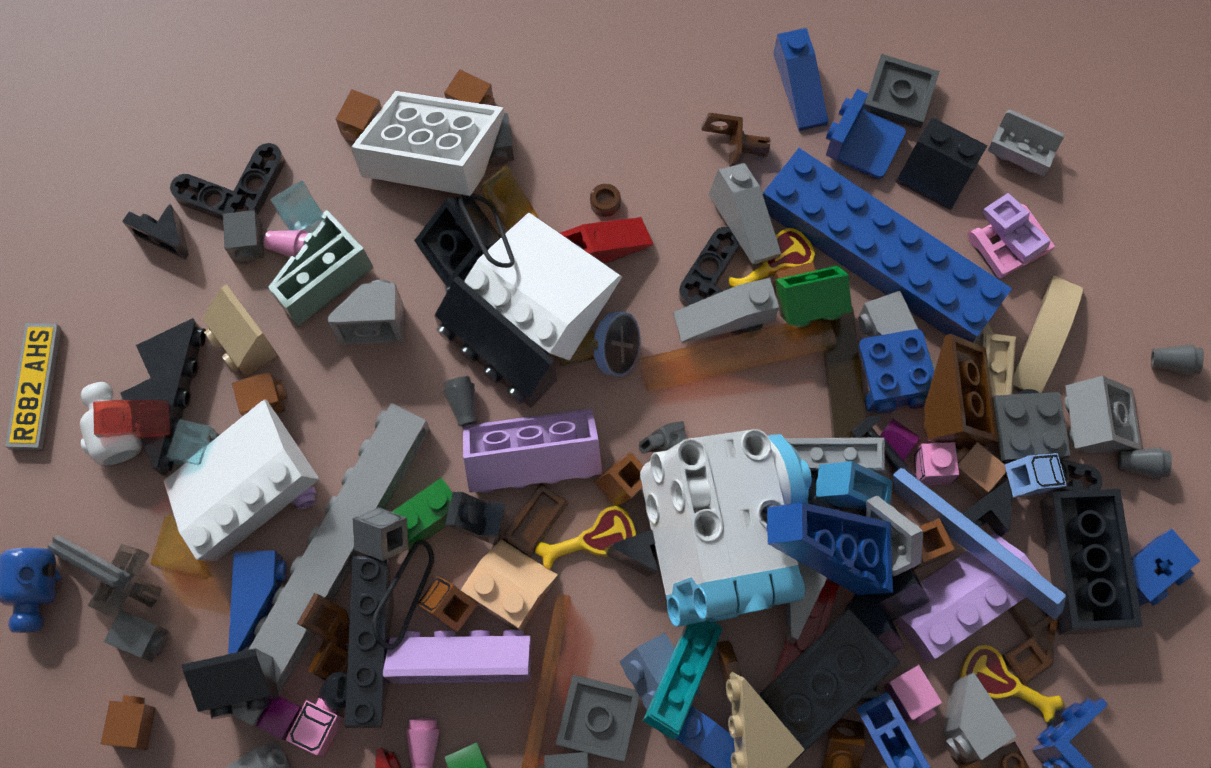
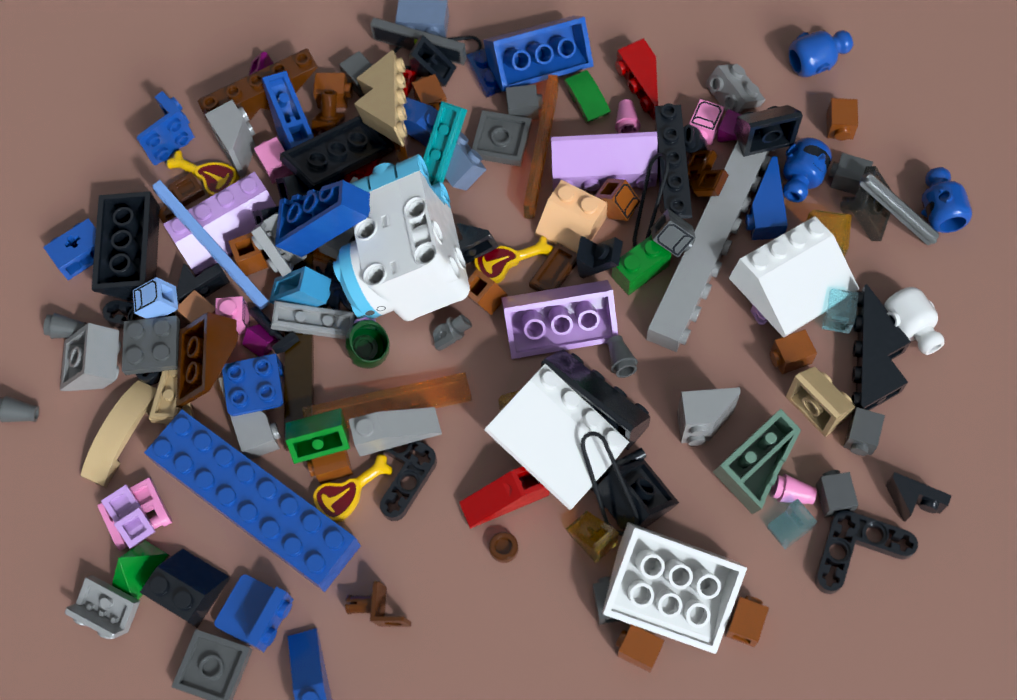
camera: 175 degrees left, 5 degrees down
(33, 387) = (991, 360): tile -> none
(131, 417) = (893, 311): clear red slope -> none
(193, 638) = (805, 167): none -> blue piece
(195, 298) = (863, 432): none -> dark grey brick
(617, 343) = (489, 398): tile -> none
(745, 212) = (372, 524): light grey slope -> none
(764, 410) = (365, 340): none -> dark green helmet
(994, 184) = (136, 568): none -> green slope

